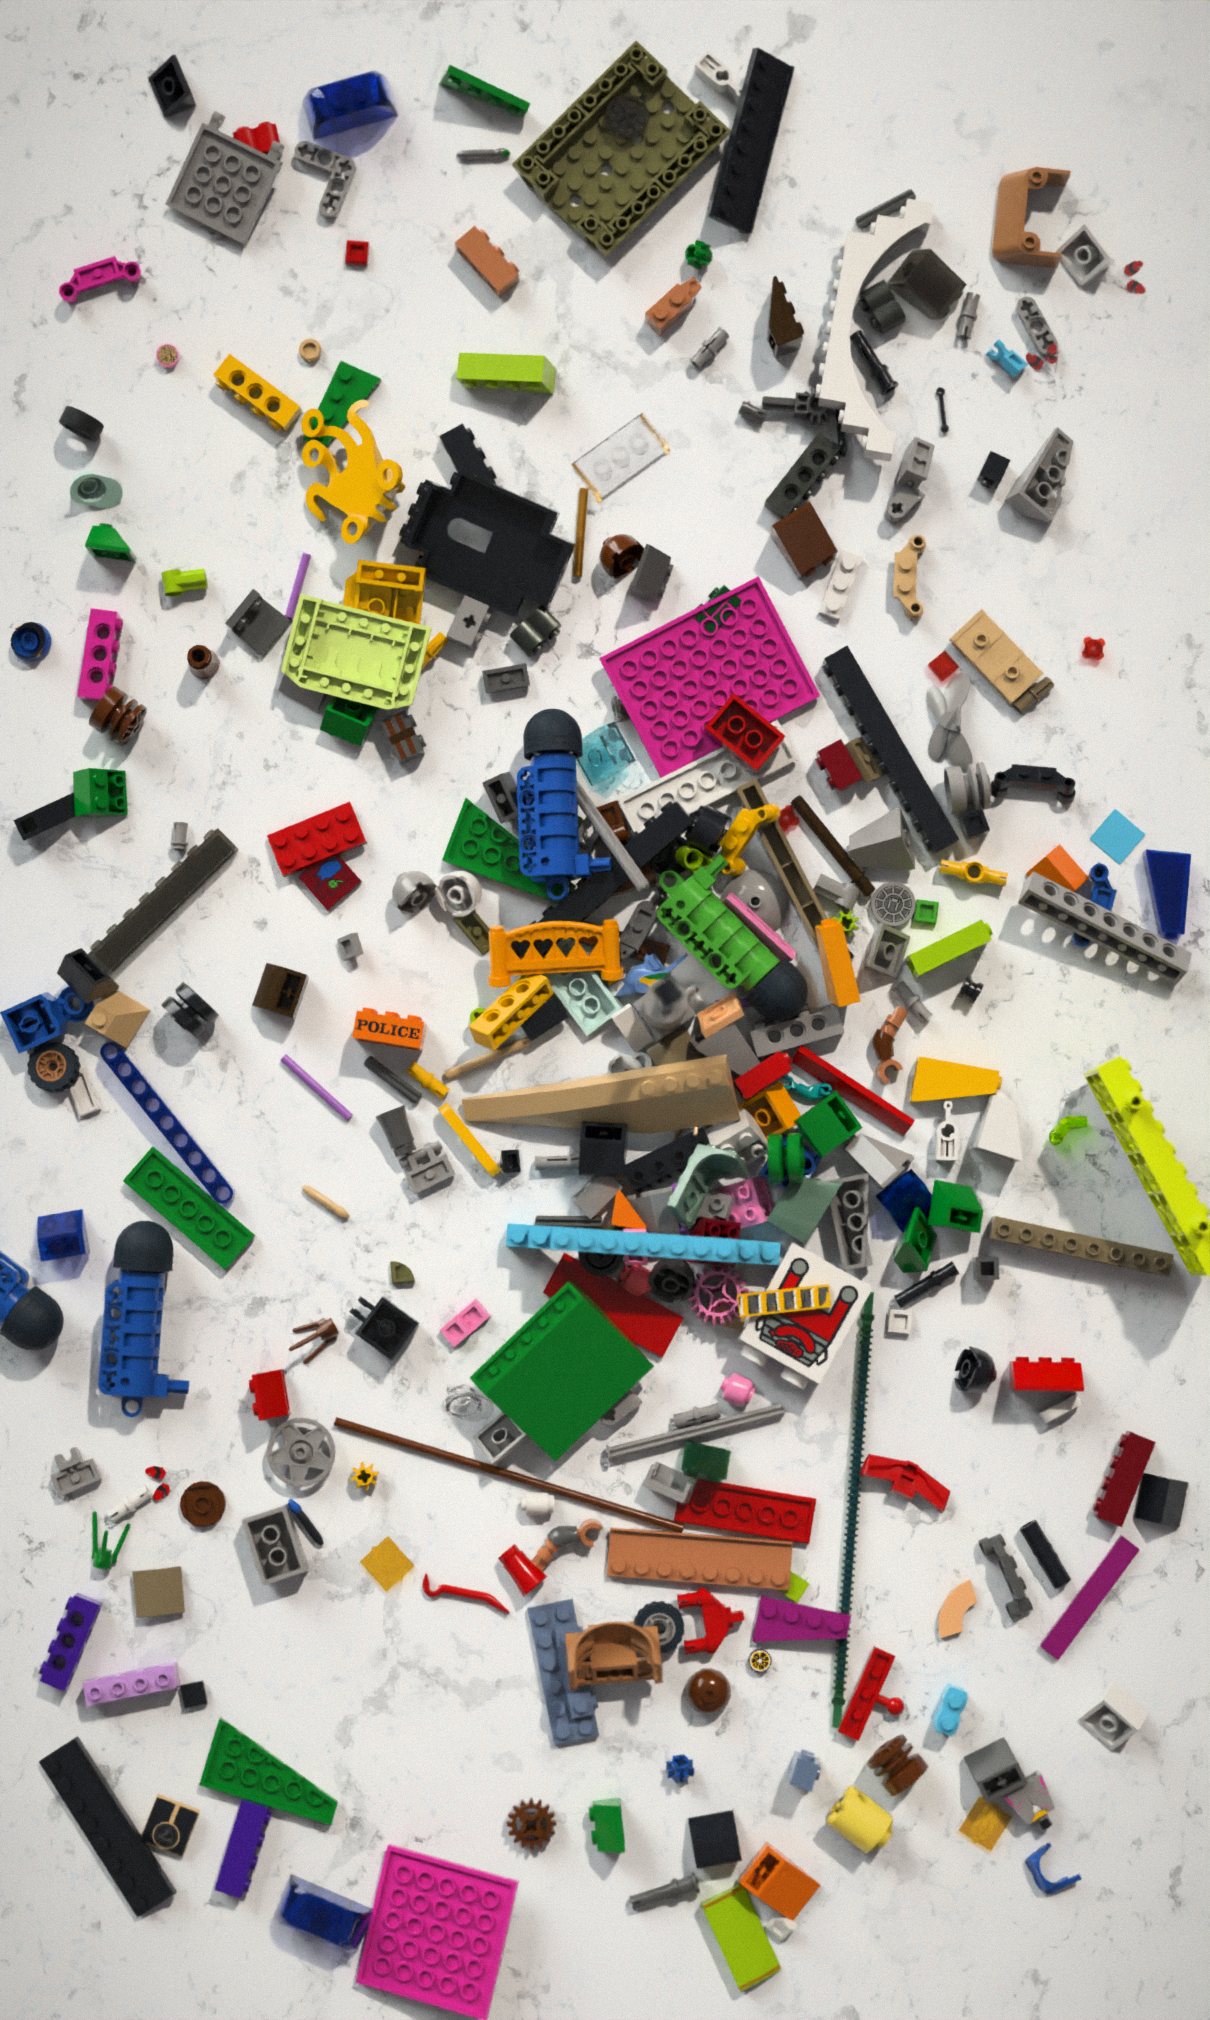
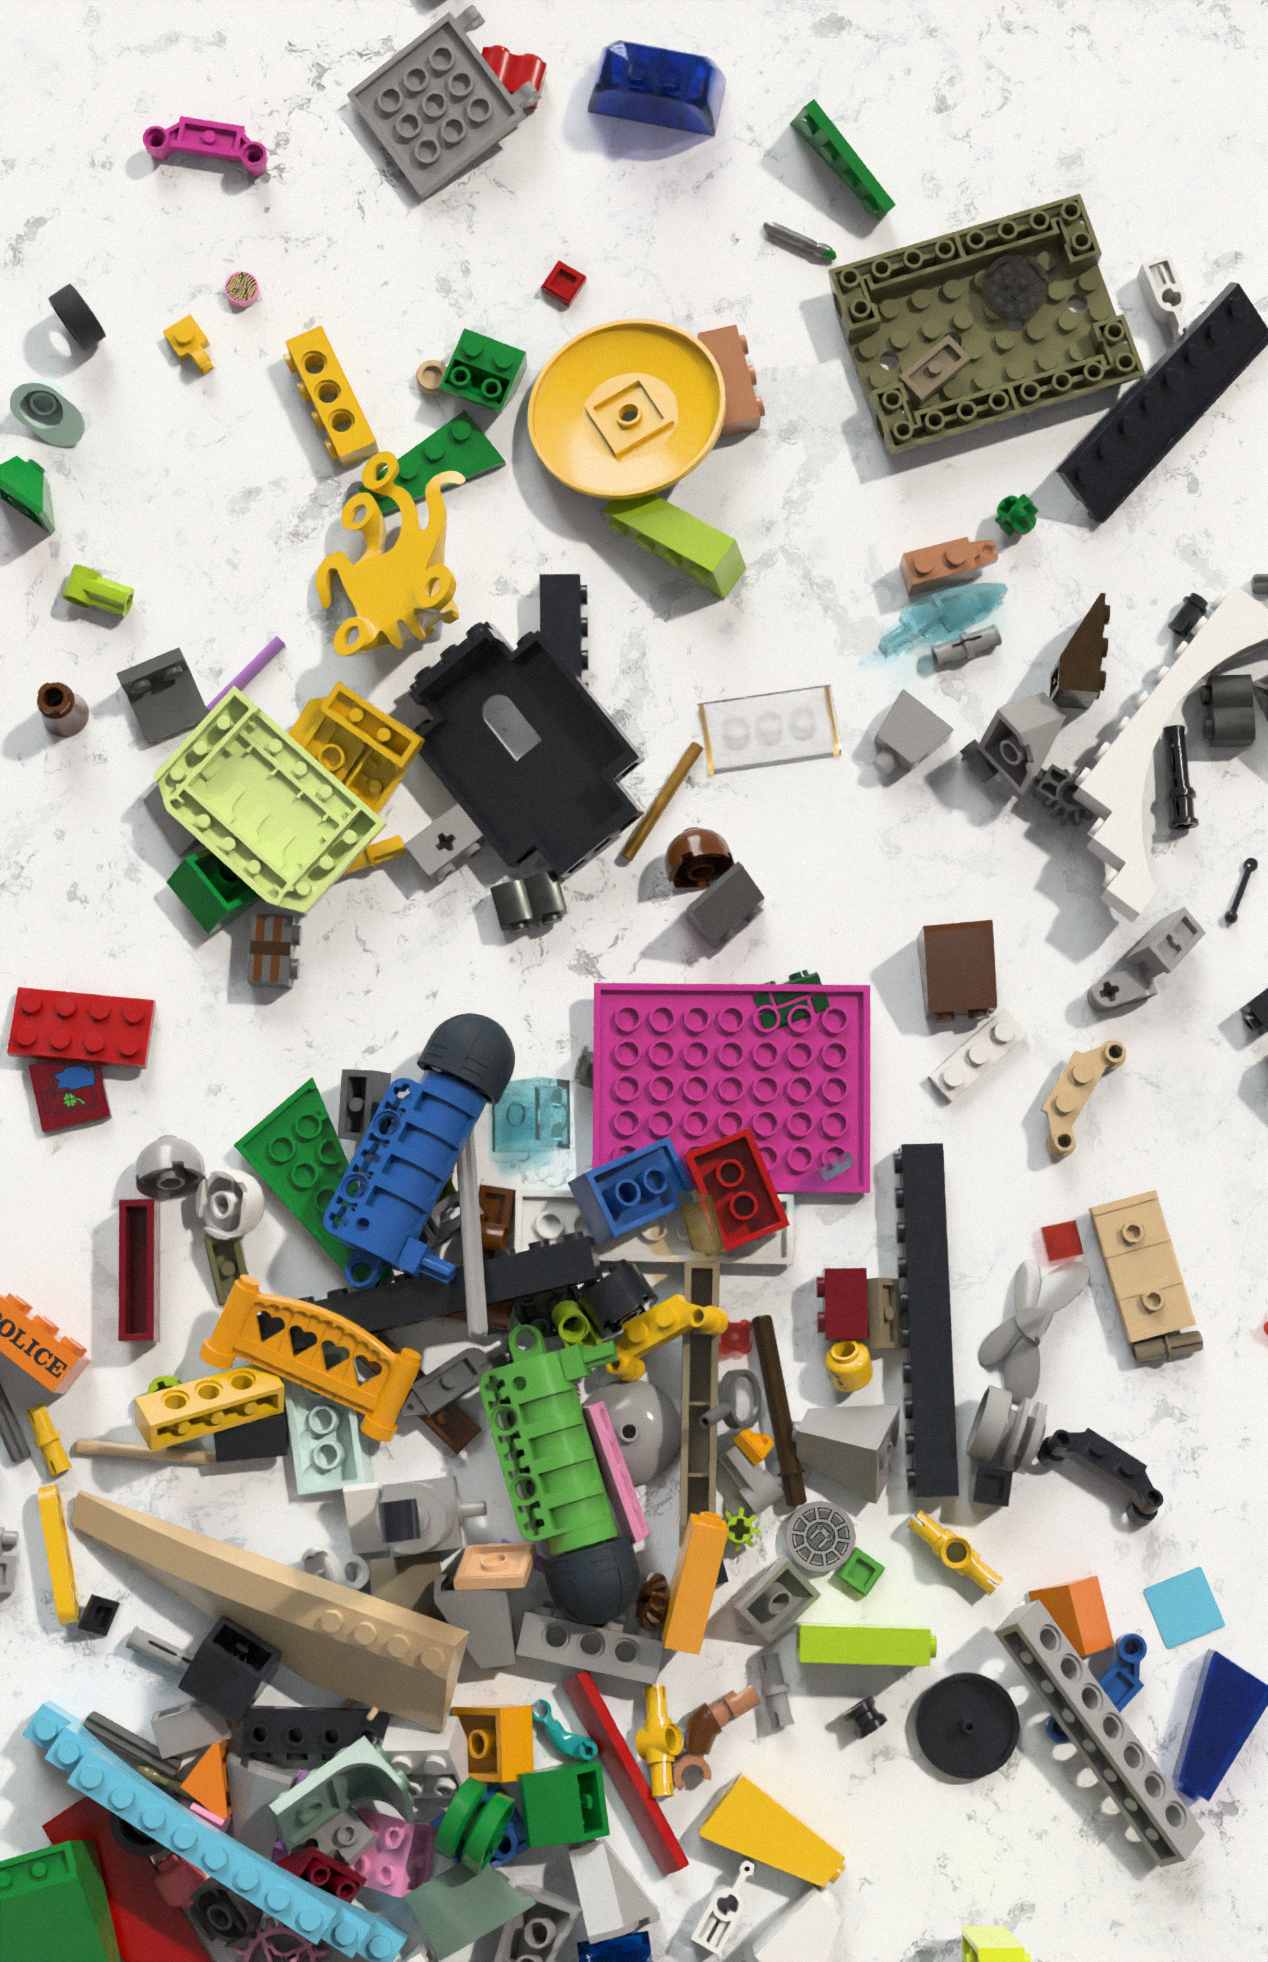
camera: 25 degrees right, 5 degrees down
(153, 404) = (189, 341): none -> yellow plate
(334, 169) = (592, 162): light grey beam -> none
(340, 331) = (484, 371): none -> green slope
(350, 946) = (45, 1197): light grey plate -> none
(417, 289) = (618, 370): none -> yellow dish
(428, 958) = (139, 1271): none -> dark red brick
(506, 678) = (454, 944): dark grey plate -> none
(605, 192) = (934, 369): none -> dark tan plate
(642, 976) = (419, 1453): medium blue animal -> none
(685, 765) = (630, 1190): none -> blue slope
(688, 330) = (952, 608): none -> clear light blue slope
(703, 418) = (909, 734): none -> light grey torso
(734, 762) = (701, 1223): none -> clear yellow piece
(763, 1075) = (510, 1685): red window -> none
(772, 386) = (1022, 738): none -> light grey slope
(793, 690) = (835, 1167): none -> clear light blue tile
(807, 851) = (738, 1401): none -> dark grey piece
(818, 988) = (652, 1600): none -> reddish brown gear
(820, 446) = (1047, 853): pearl dark grey brick -> none
(829, 262) = (1188, 614): none -> black pin
(829, 872) = (754, 1445): none -> light orange tile
(841, 437) = (1080, 866): black piece -> none
(859, 799) = (849, 1365): none -> yellow head
(862, 1063) = (659, 1741): none -> yellow pin
(1029, 965) = (967, 1725): none -> black piece

